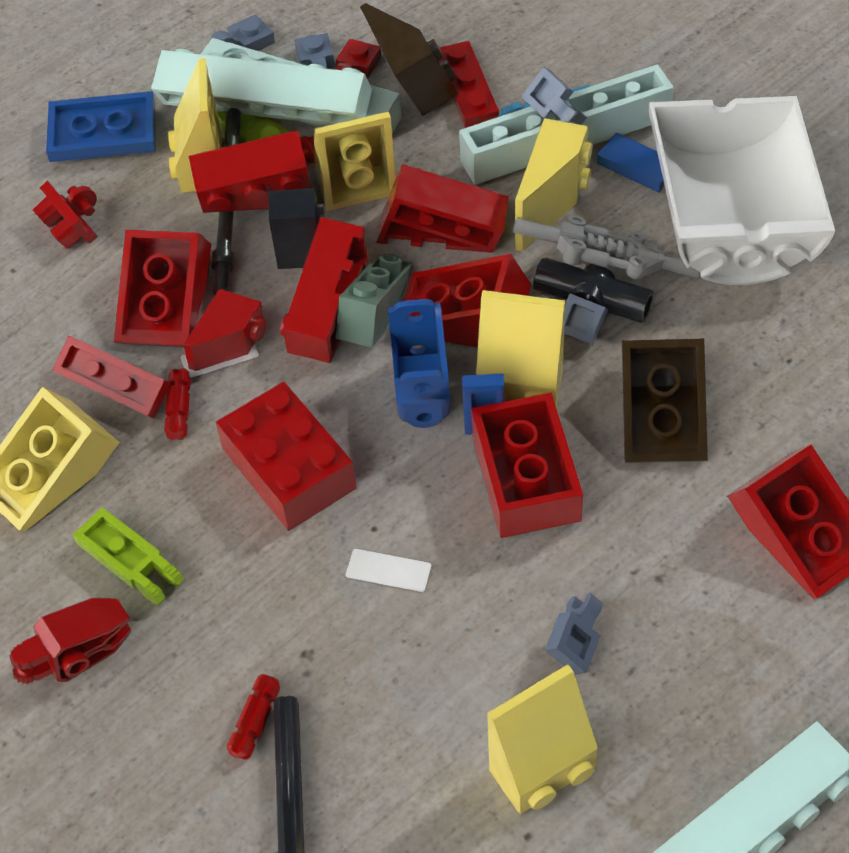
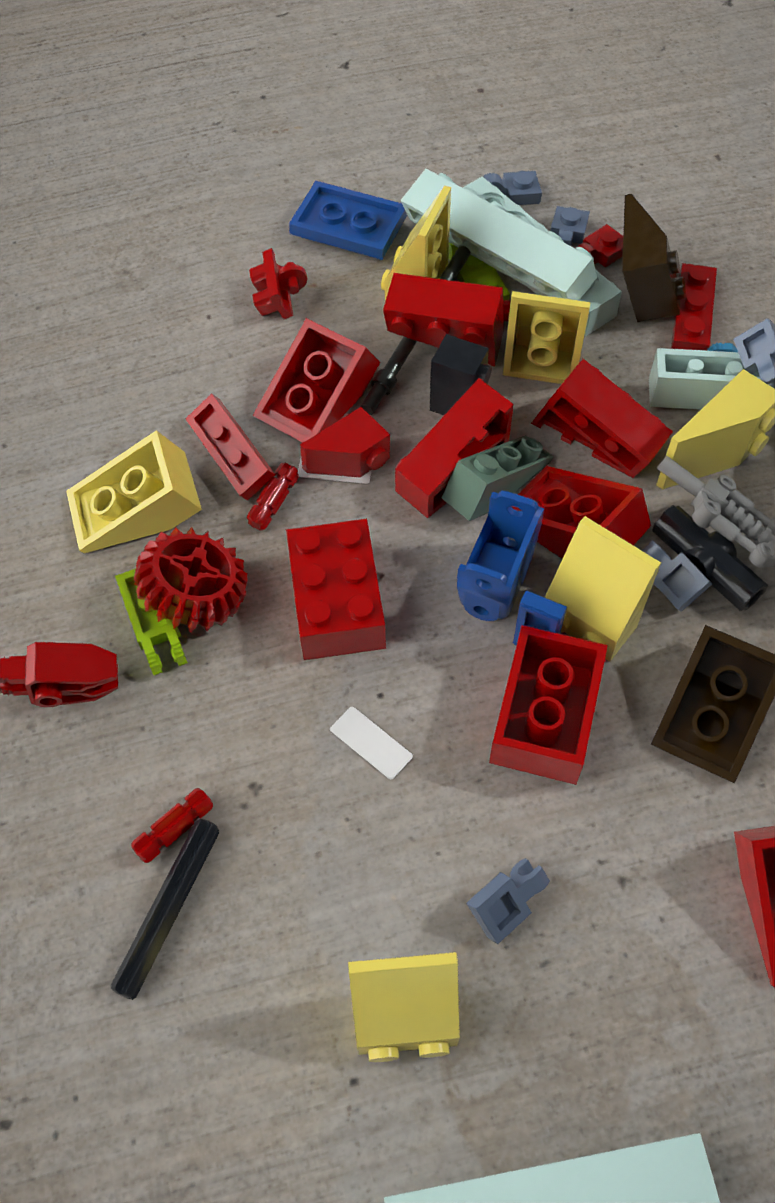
camera: 25 degrees right, 5 degrees up
(149, 504) = (190, 579): none -> red gear

